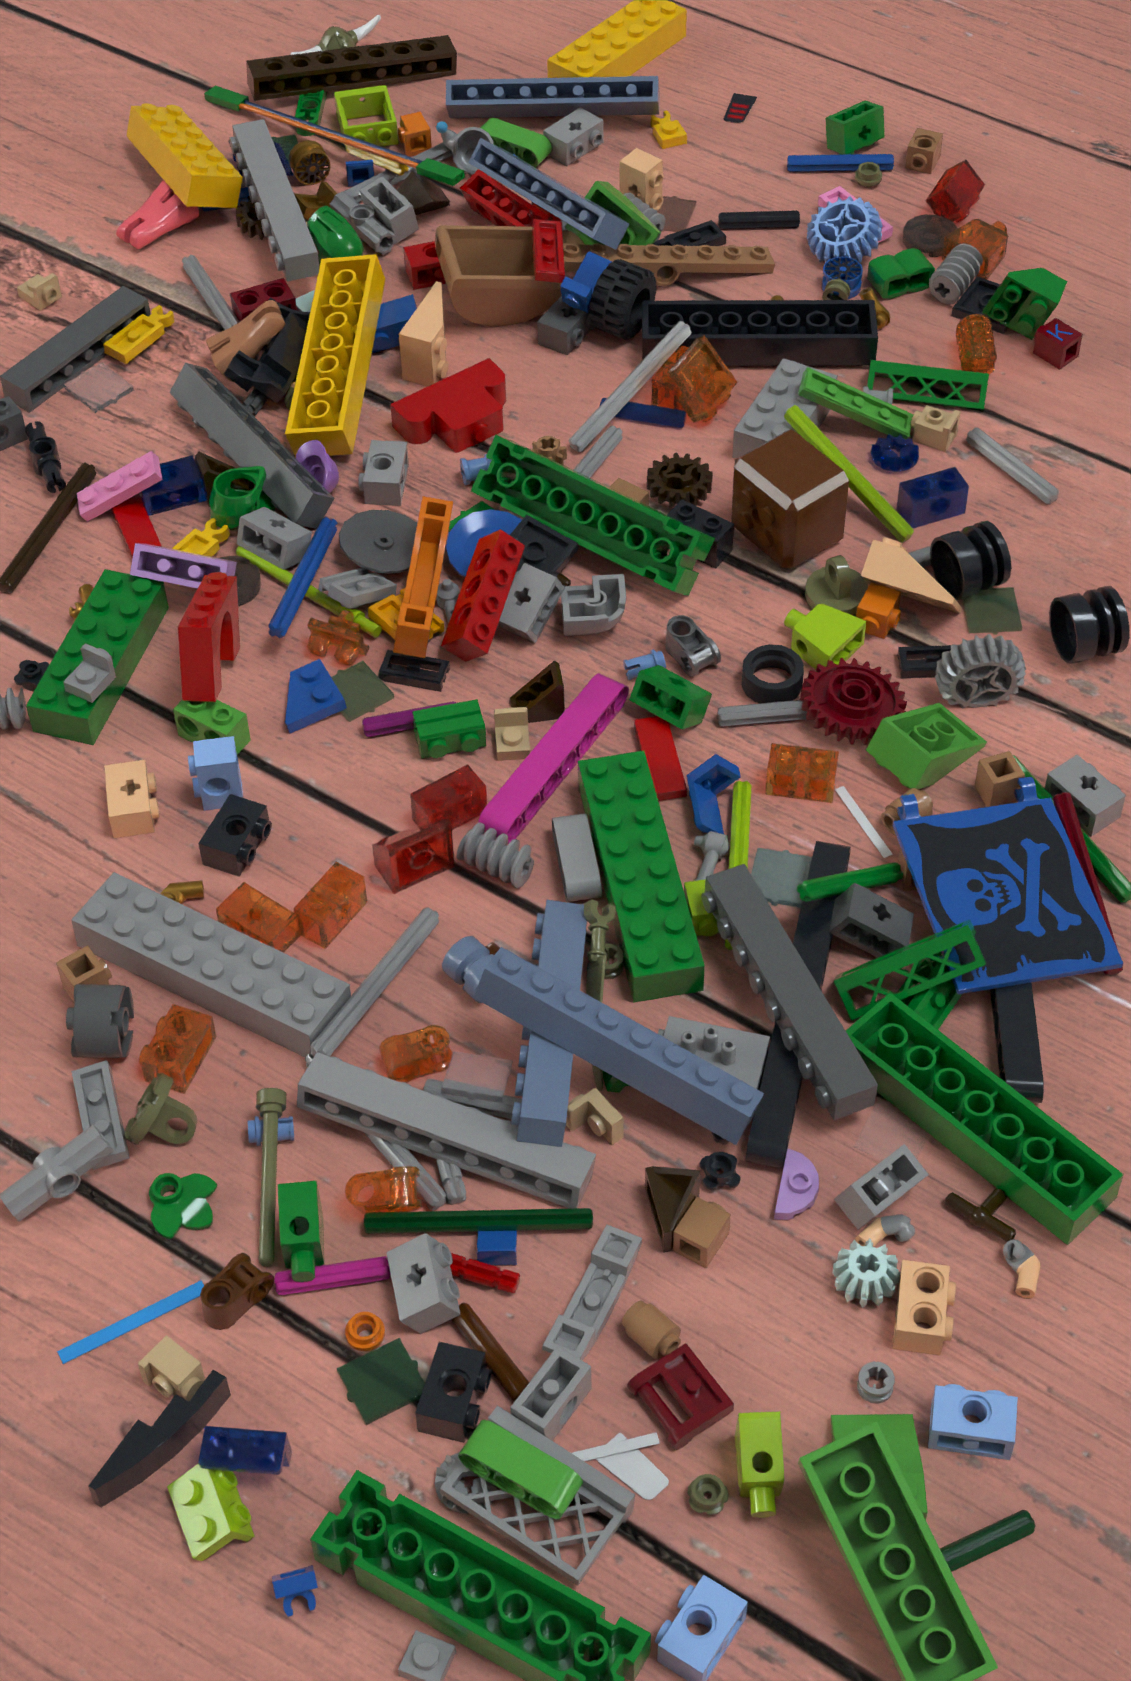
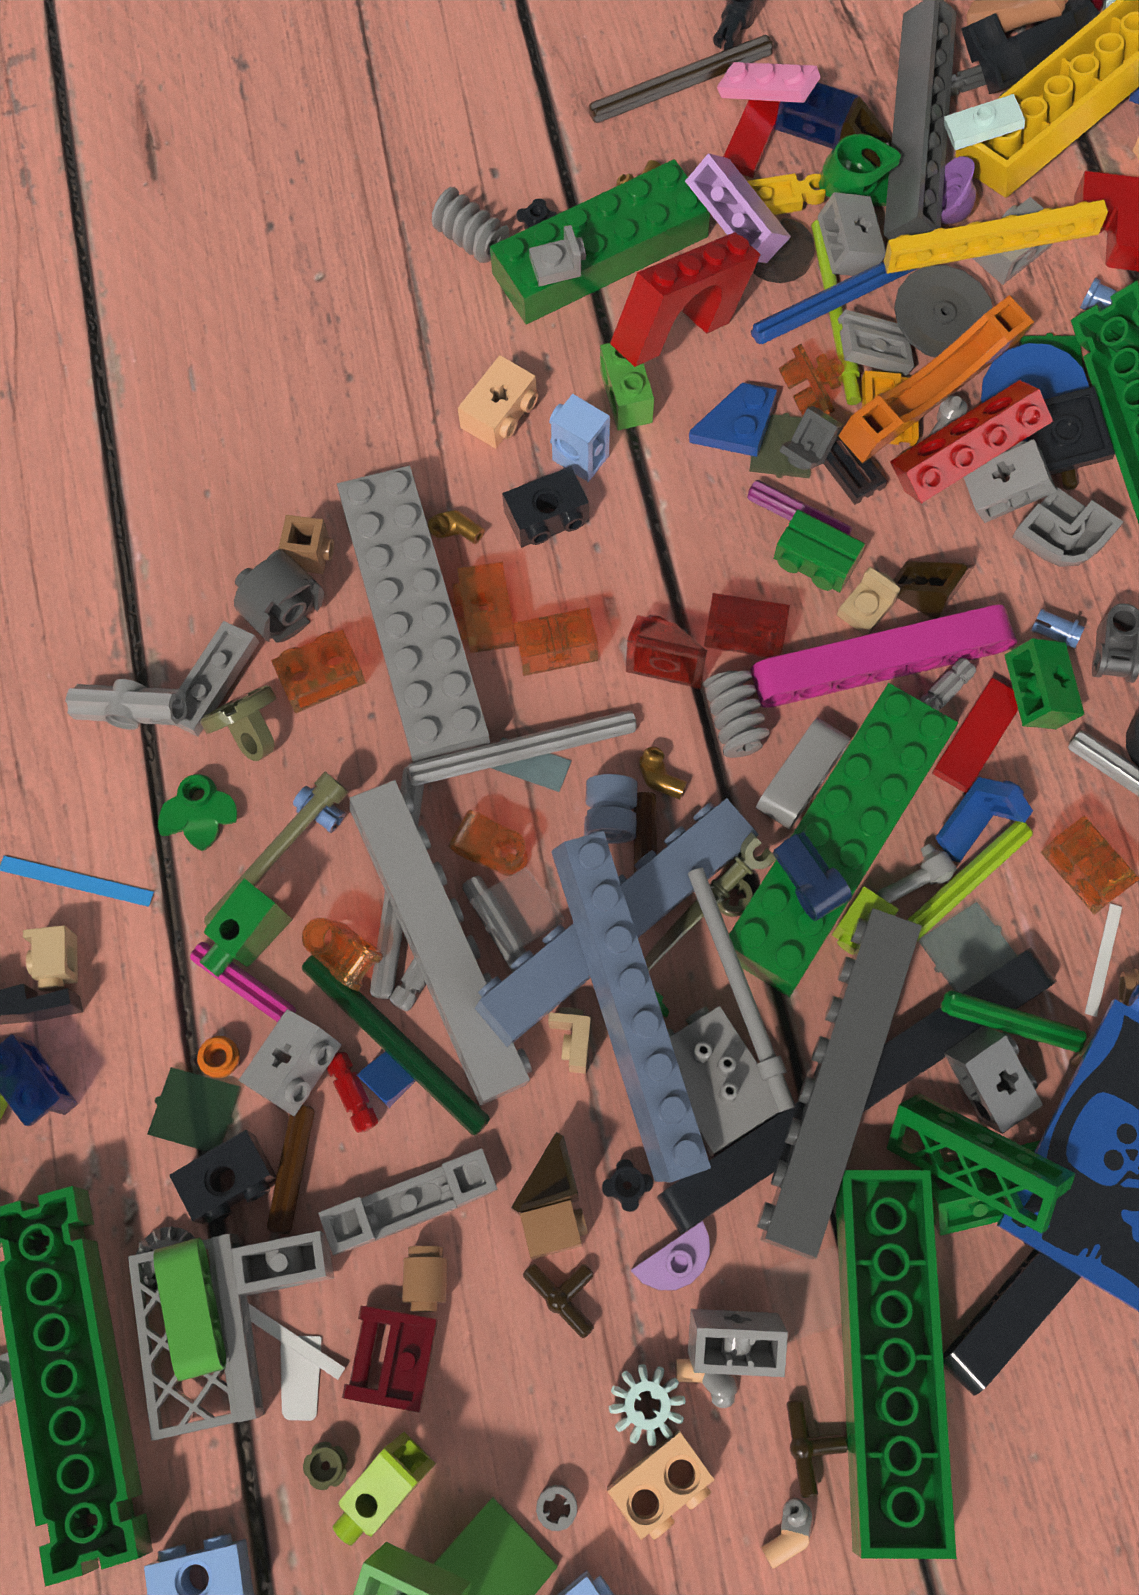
camera: 45 degrees right, 20 degrees up
(239, 1287) = (166, 928): reddish brown piece -> none
(299, 414) = (984, 122): none -> light aqua plate
(374, 474) = (995, 236): none -> yellow plate
(377, 667) = (812, 439): none -> dark grey bracket
(396, 993) = (542, 770): none -> clear light blue sticker
(485, 934) = (656, 775): none -> pearl gold arm
(611, 738) = (949, 684): none -> light grey axle
(660, 893) = (817, 886): none -> dark blue piece
(736, 1017) = (770, 1066): none -> light grey bar
(749, 1269) = (559, 1299): none -> dark brown piece

